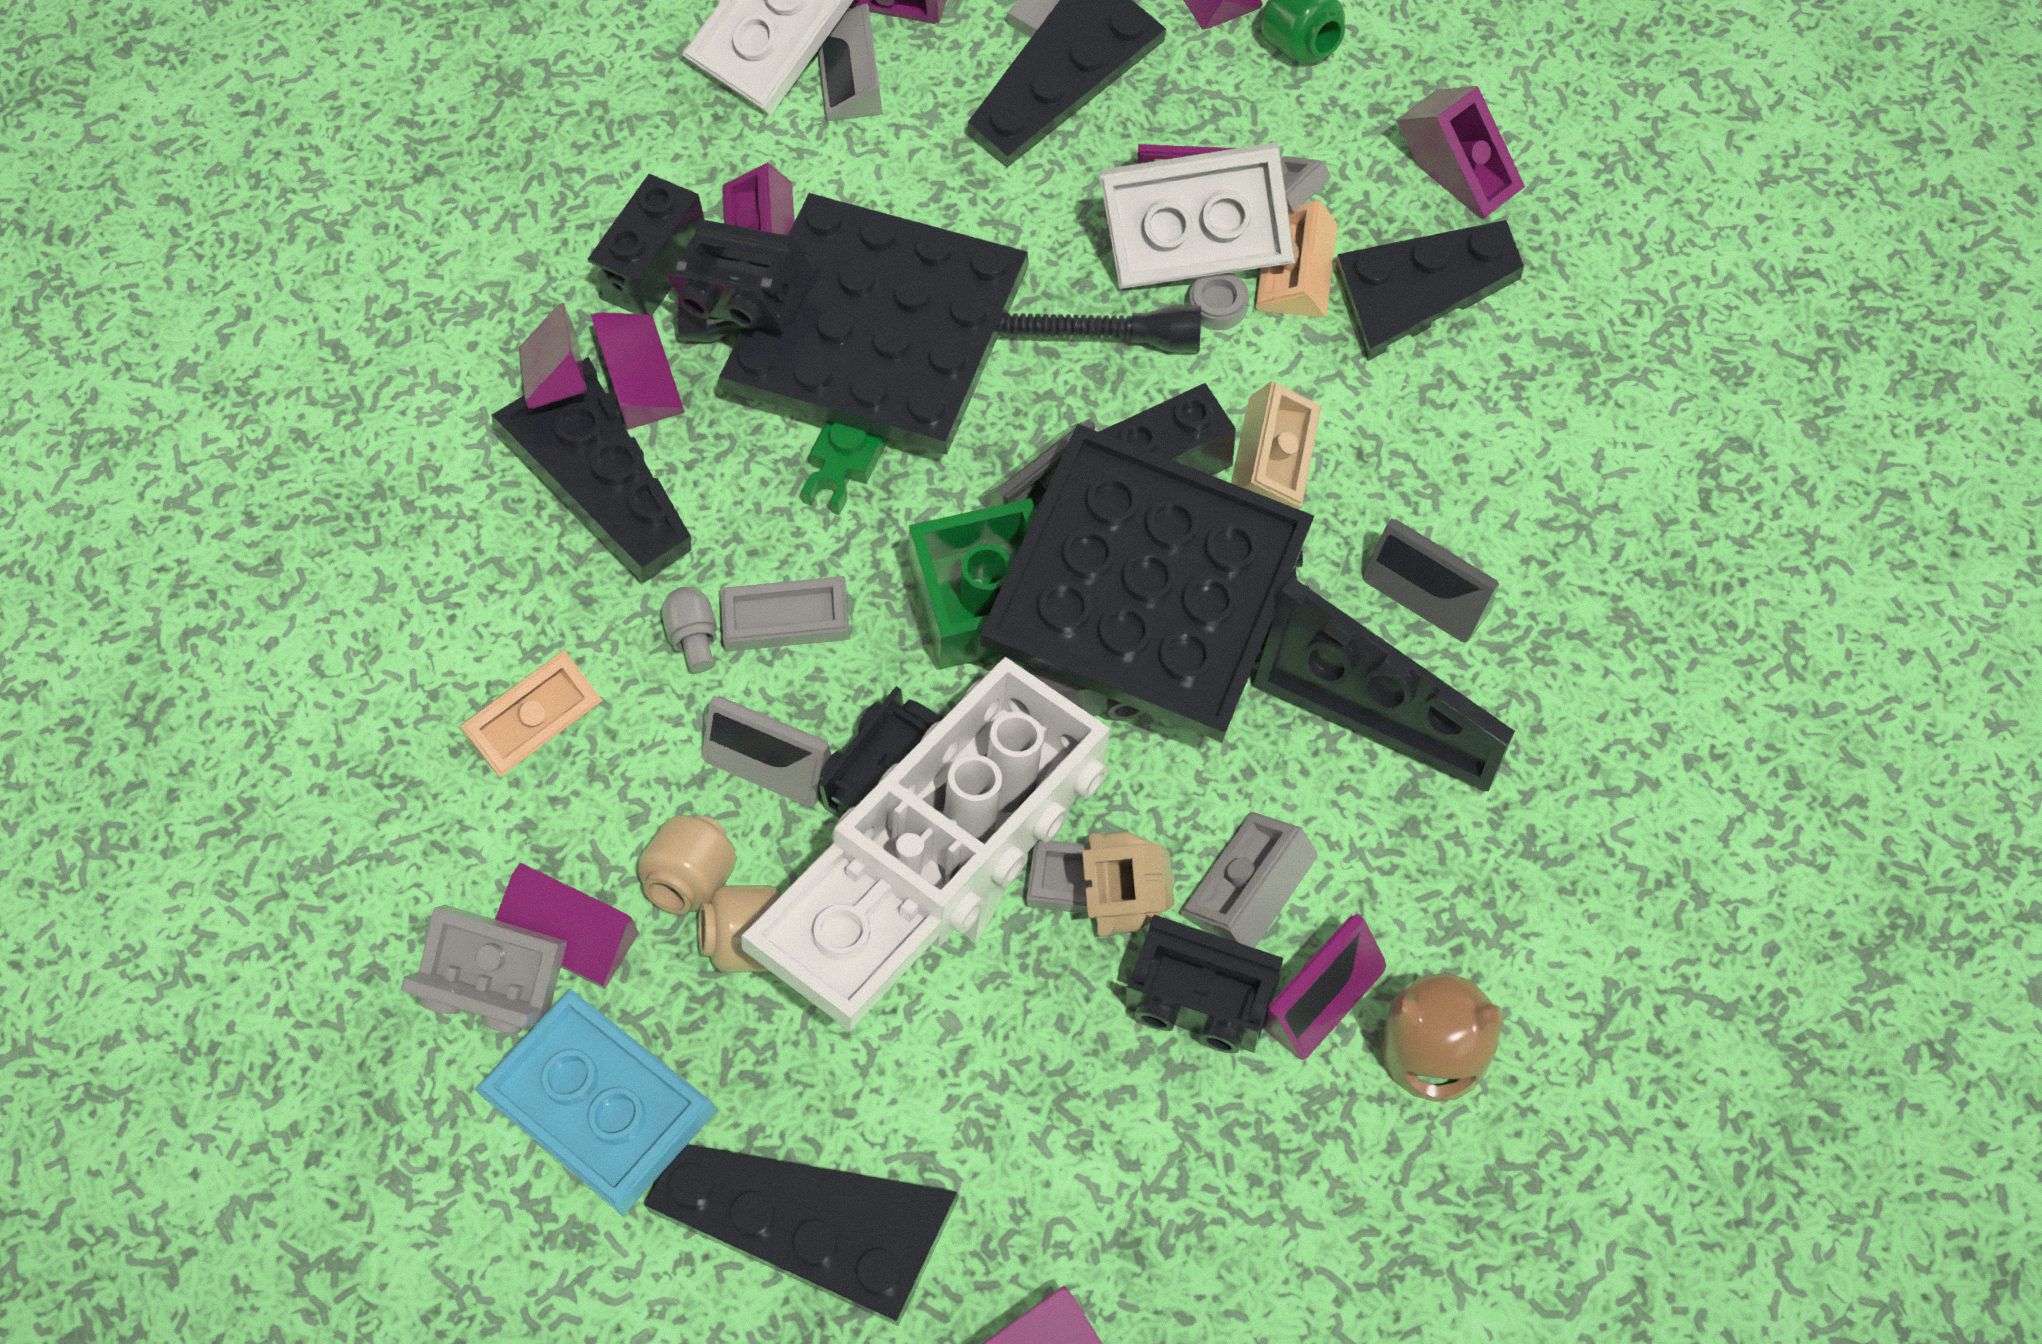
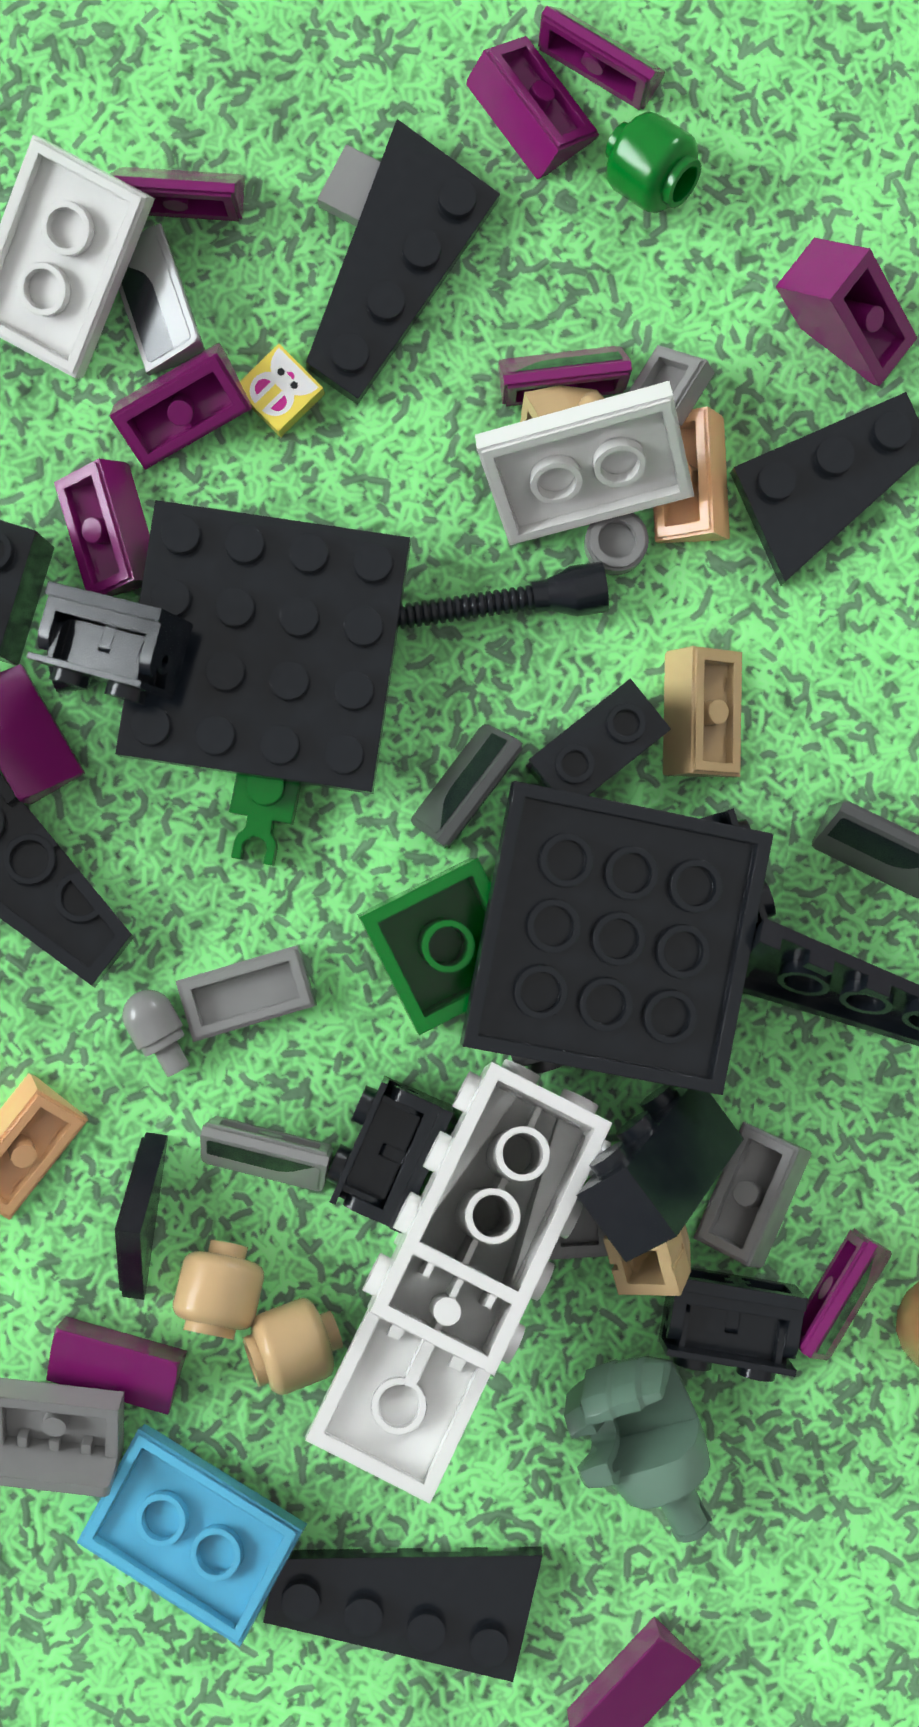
camera: 20 degrees left, 25 degrees up
(623, 791) = (138, 1216): none -> black tile
(849, 140) = (180, 406): none -> magenta slope
(939, 144) = (281, 390): none -> tile
(1086, 1072) = (643, 1439): none -> sand green piece
(1151, 786) = (659, 1169): none -> black brick

